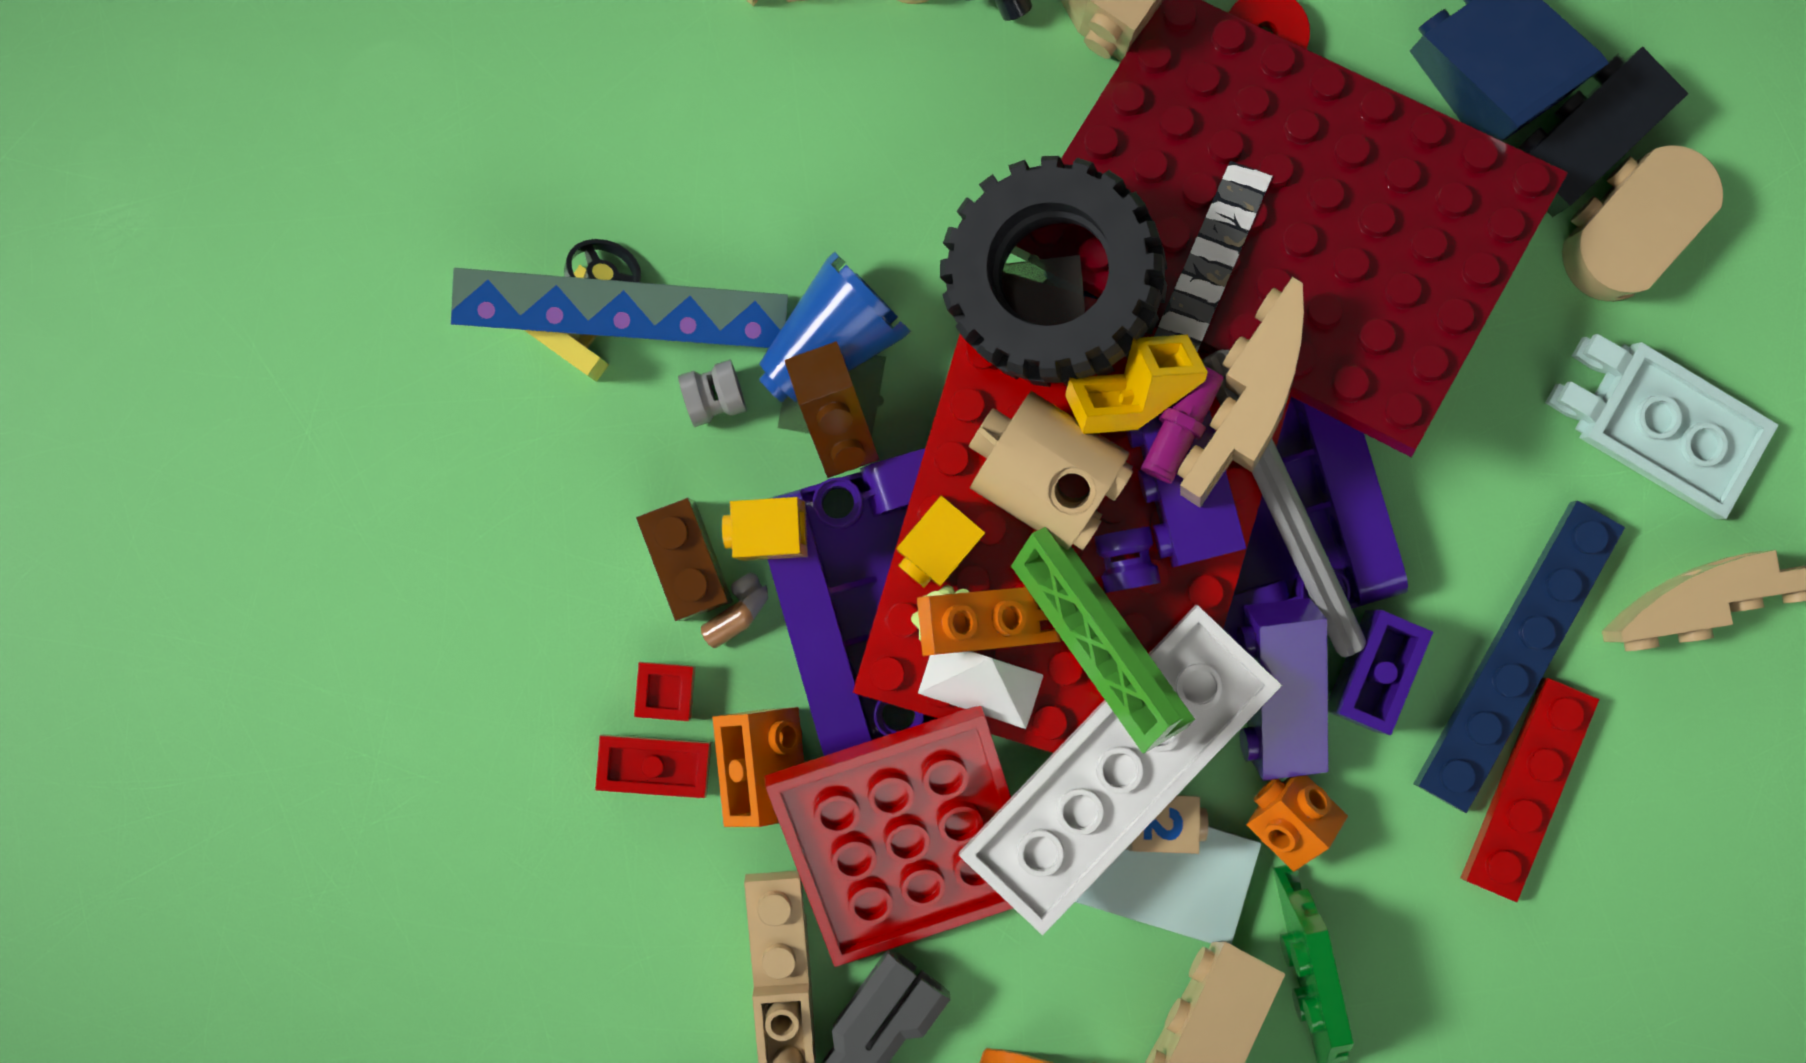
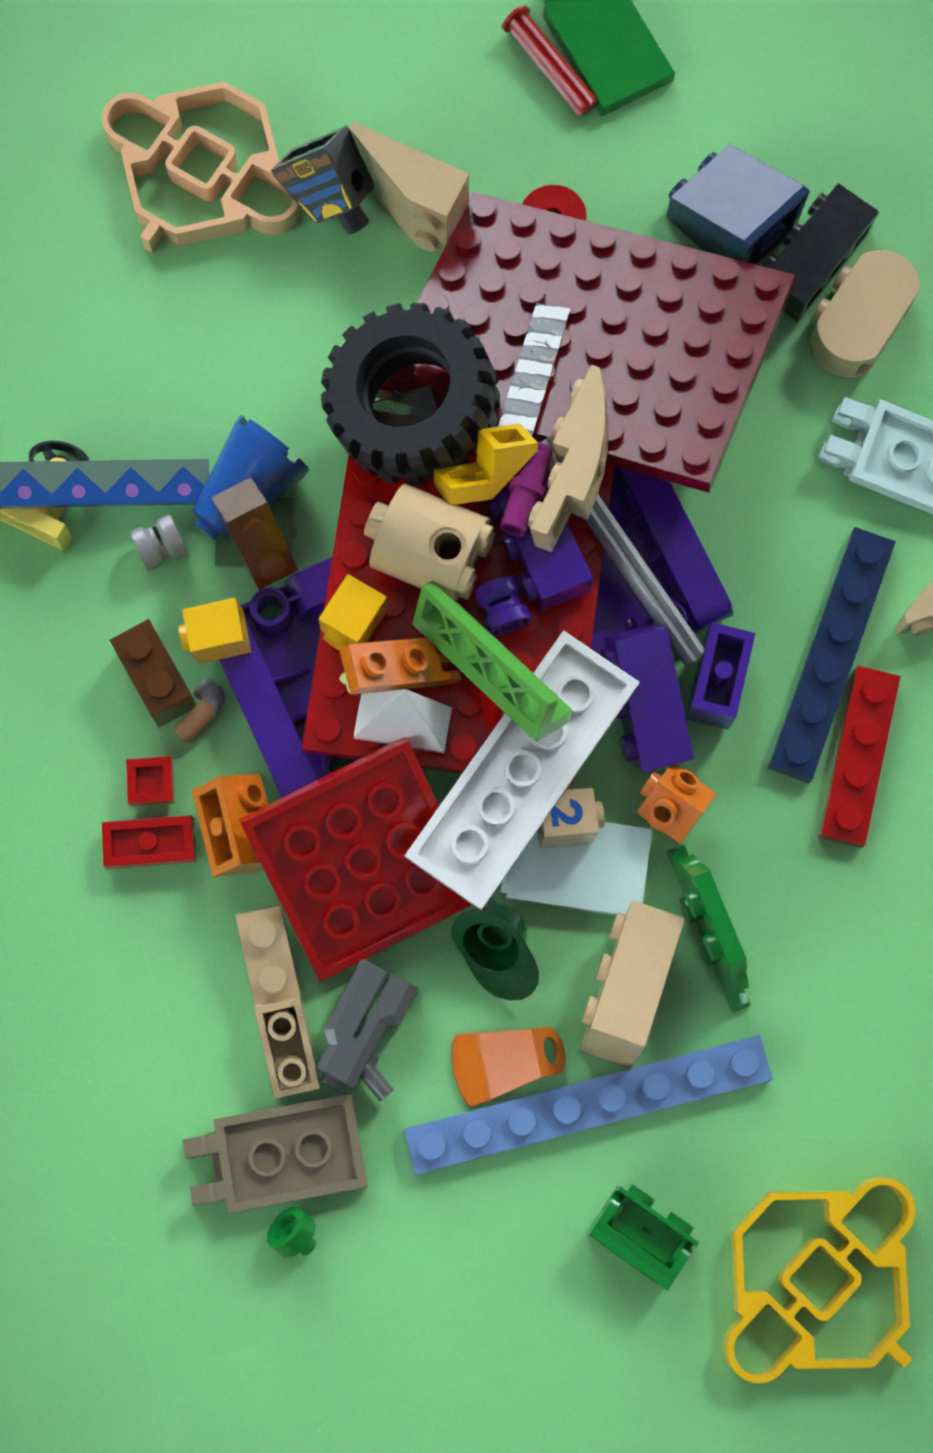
camera: 20 degrees left, 10 degrees down
(1053, 968) = (497, 950): none -> dark green piece

